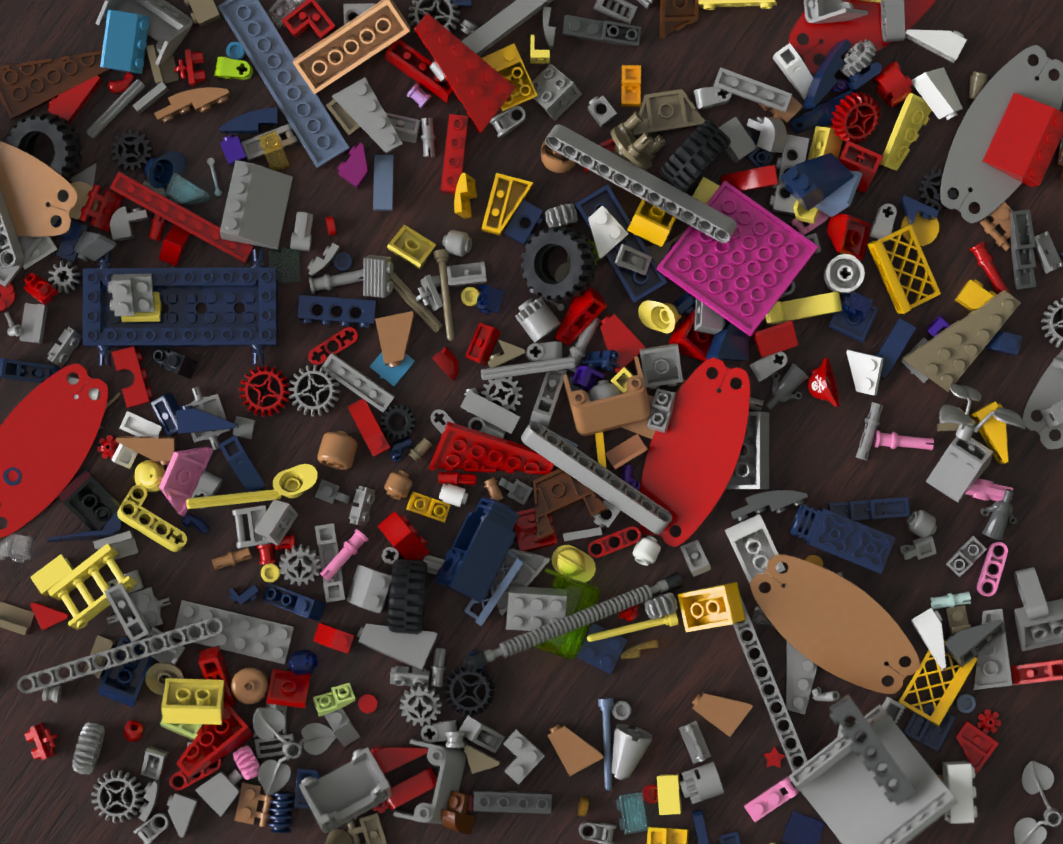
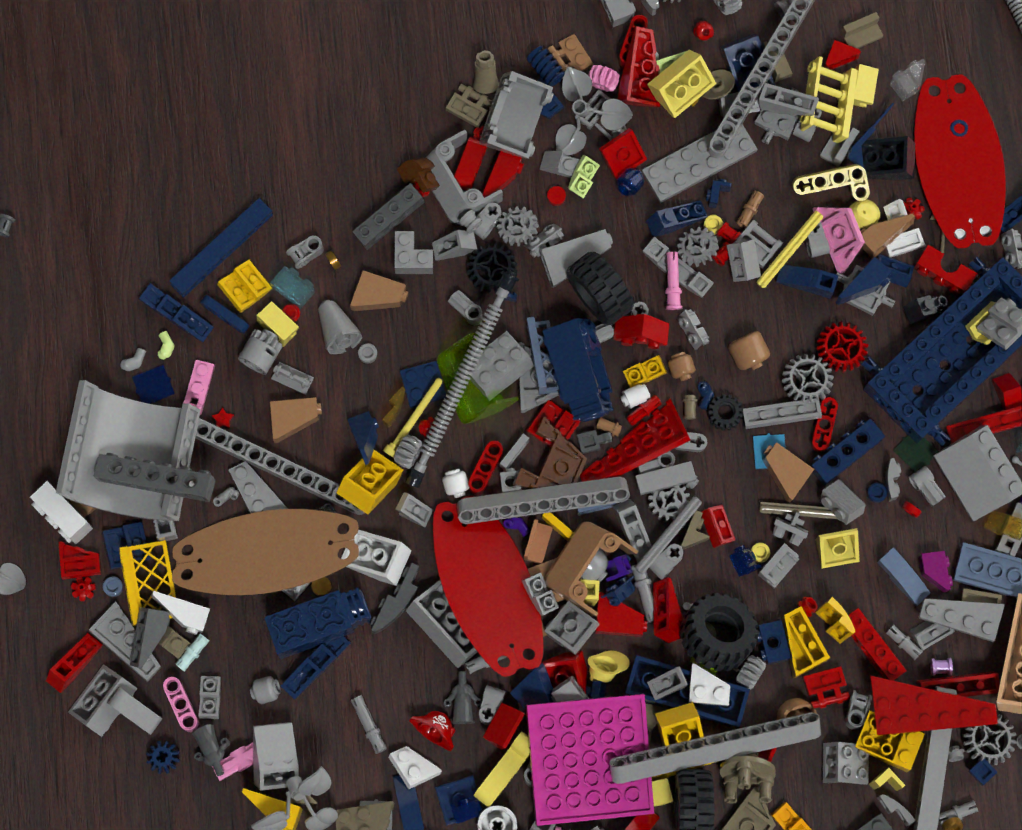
camera: 135 degrees right, 10 degrees down
(154, 762) = (669, 24): light grey slope -> none
(196, 521) = (800, 212): clear blue arm -> none
(214, 668) = (689, 122): red slope -> none
(221, 790) = (603, 43): light grey torso -> none
(246, 427) = (831, 309): light grey slope -> none
(252, 677) = (652, 132): medium nougat head -> none
(295, 480) = (759, 301): light yellow piece -> none
(328, 281) = (872, 468): light grey pin -> none
(329, 492) = (725, 318): dark grey plate -> none
(334, 638) = (623, 219): red slope -> none
(369, 427) = (741, 388): red slope -> none
(369, 589) = (632, 271): light grey slope -> none
(438, 667) = (529, 264): light grey axle -> none
(441, 257) = (808, 559): dark tan piece -> none
(447, 362) = (730, 488): red brick -> none
(457, 243) = (807, 582): light grey head -> none
(473, 226) = (809, 605): none -> red plate
(479, 760) = (439, 226): dark tan slope -> none
(513, 162) = (825, 681): none -> red plate
(517, 679) = (465, 307): none -> light grey piece
(537, 319) = (695, 578): light grey gear -> none
(573, 563) = (500, 427): light yellow piece -> none
(602, 119) = (787, 785): light grey brick -> none
(606, 705) = (382, 346): sand blue piece -> none
(682, 647) = (365, 434): none -> dark blue slope
(894, 440) = (344, 734): bright pink pin -> none
(922, 548) = (250, 671): light grey plate -> none
(1040, 549) = (168, 760): none -> dark blue gear

